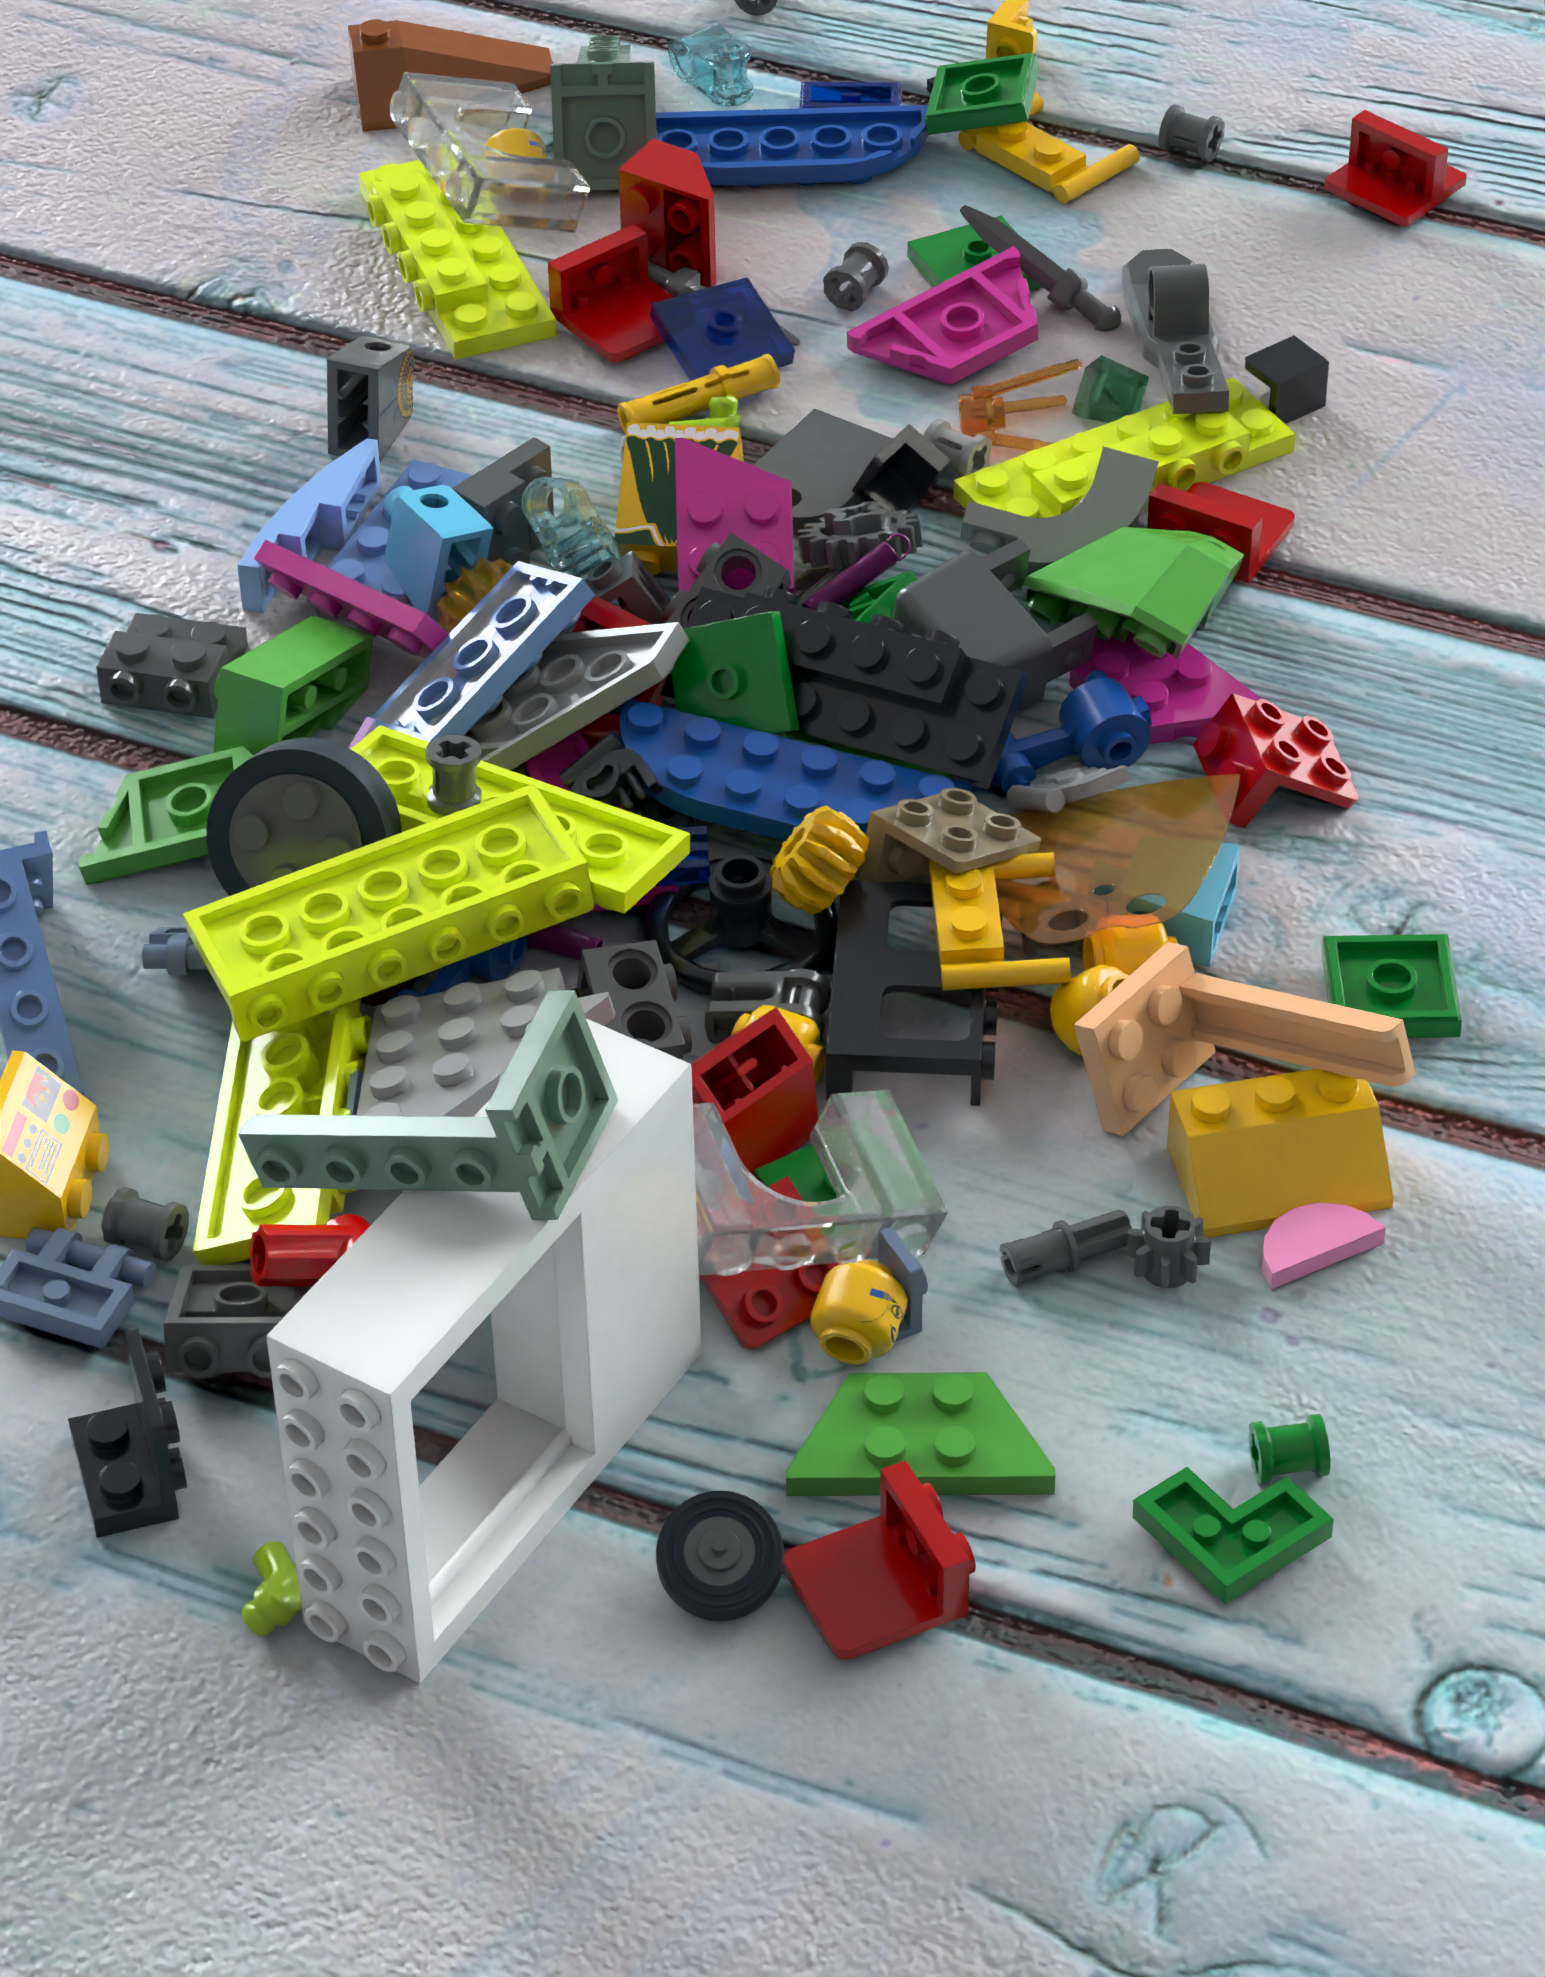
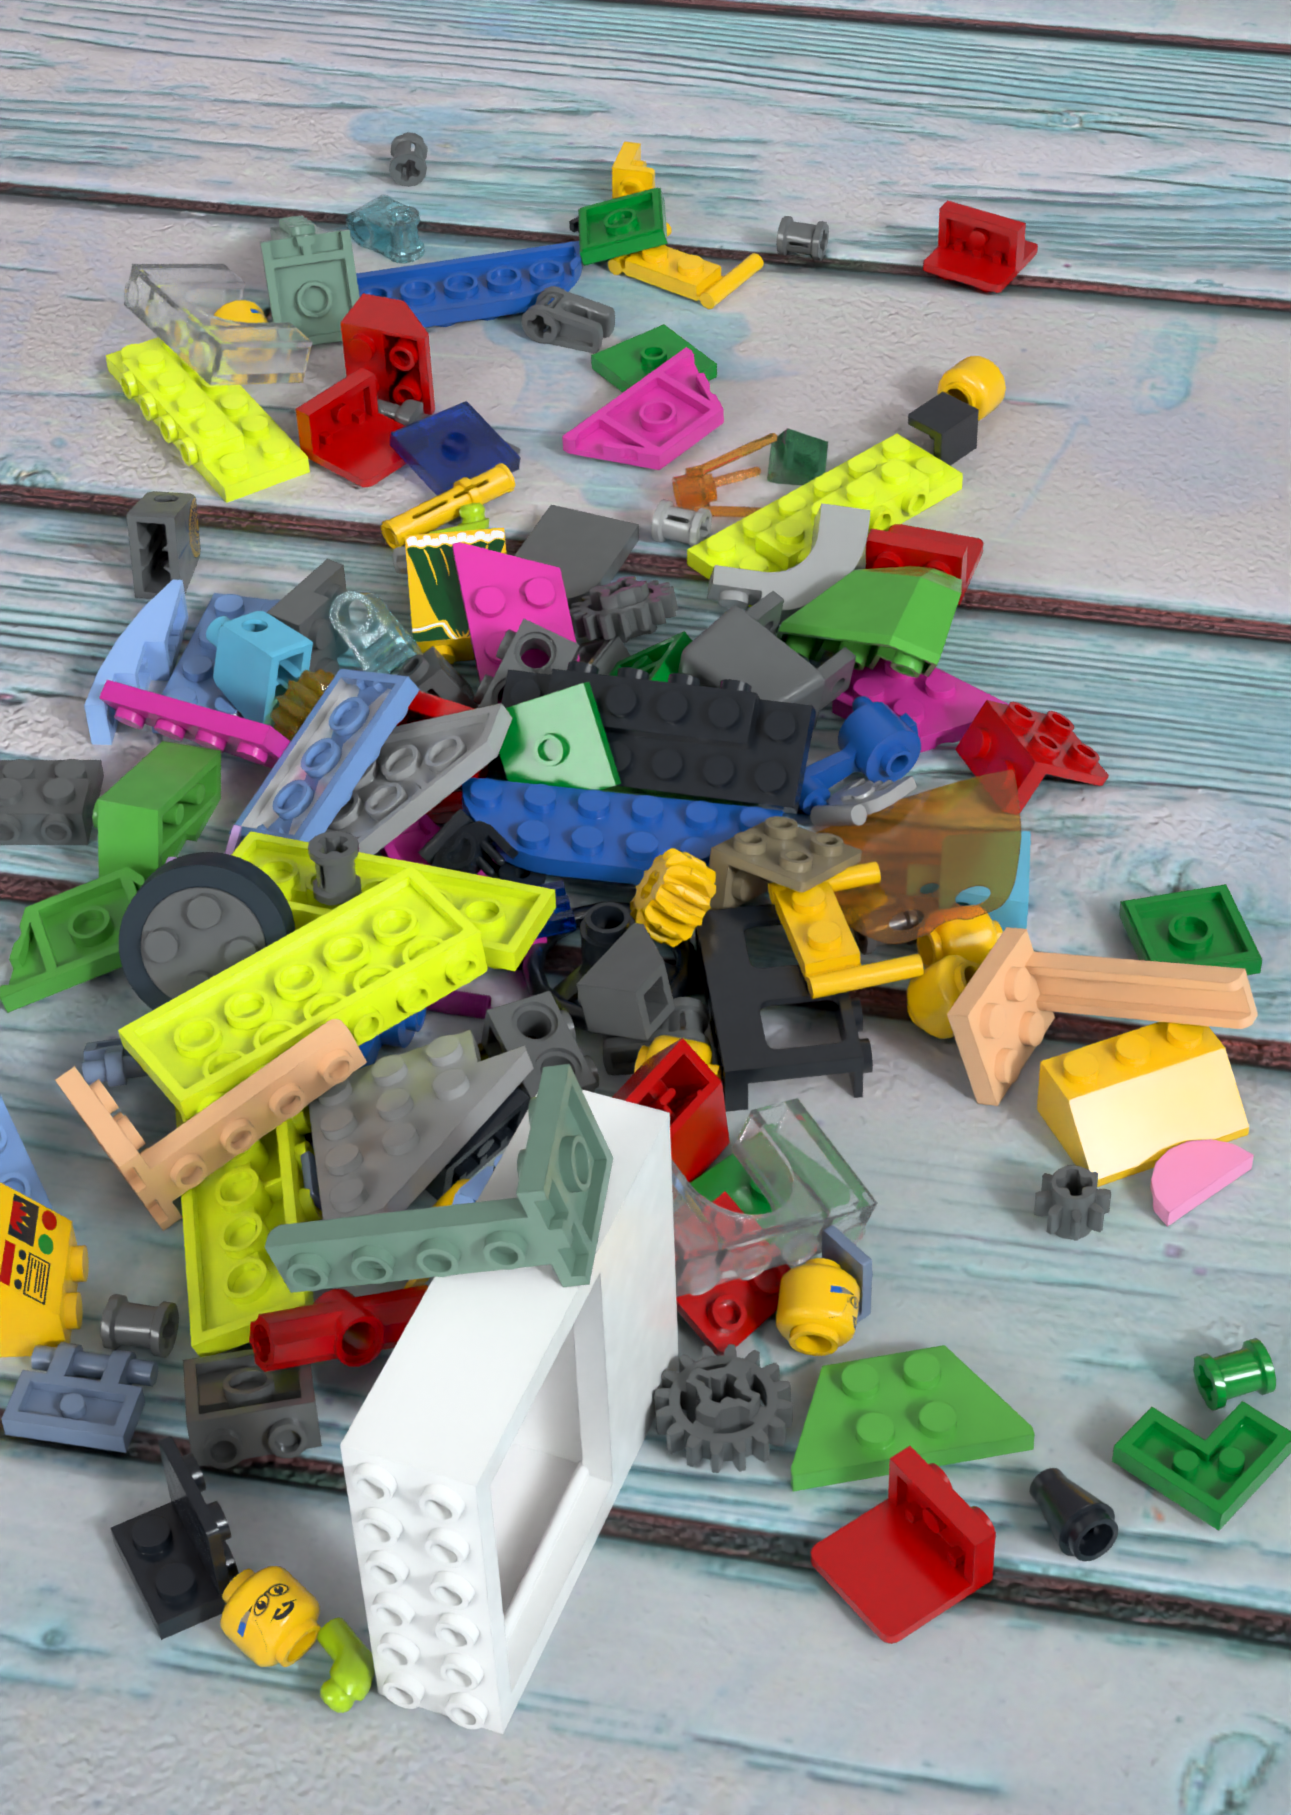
camera: 10 degrees left, 0 degrees up
(208, 1529) = (270, 1616): none -> yellow head
(272, 1031) = (223, 1127): none -> light nougat bracket
(389, 48) = (108, 251): dark orange wedge -> none
(720, 1555) = (755, 1563): black wheel -> none
(731, 1399) = (723, 1408): none -> dark grey gear
(740, 950) = (627, 988): none -> dark grey slope
(850, 94) = (507, 240): clear blue tile -> none
(858, 575) = (634, 641): magenta piece -> none
(860, 282) = (551, 385): dark grey bush -> none
(896, 198) = (571, 320): none -> dark grey piece
(902, 472) = (644, 548): black panel -> none
(1064, 1246) = (978, 1216): dark grey axle -> none
(1066, 287) = (734, 376): dark grey sword -> none
(1072, 1565) = (1077, 1518): none -> black cone
(1174, 328) = (836, 394): dark grey piece -> none
(1338, 333) = (975, 383): none -> yellow head

